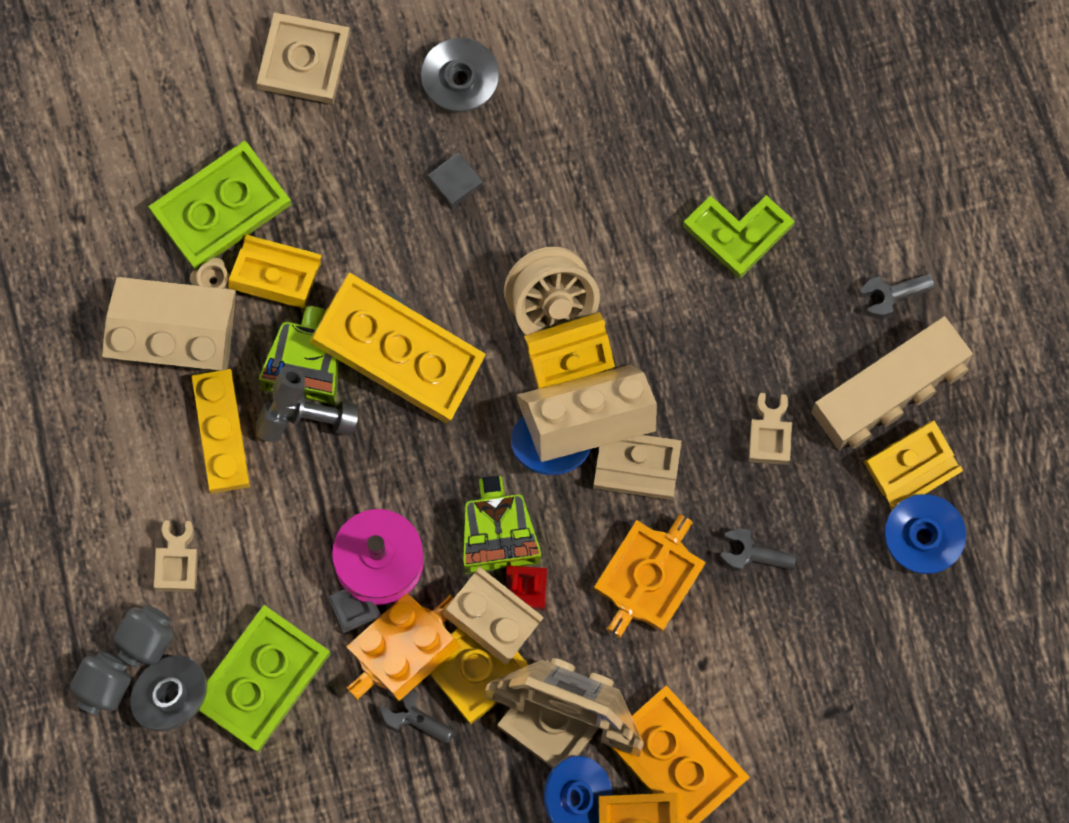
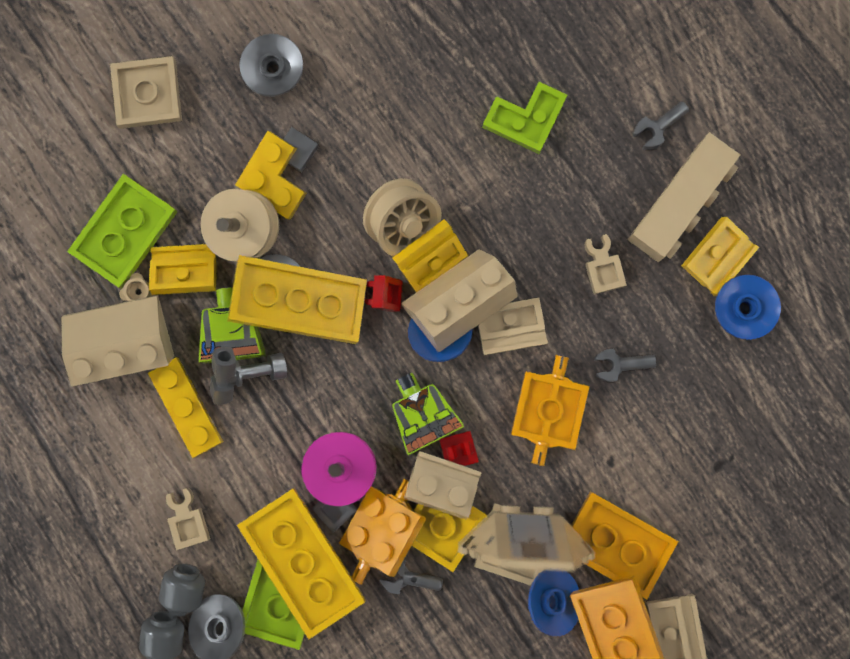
camera: 10 degrees left, 10 degrees up
(296, 647) = (301, 563): none -> yellow plate
(360, 239) = (239, 224): none -> tan wheel
(406, 198) = (265, 172): none -> yellow plate
(502, 377) = (386, 293): none -> red tile

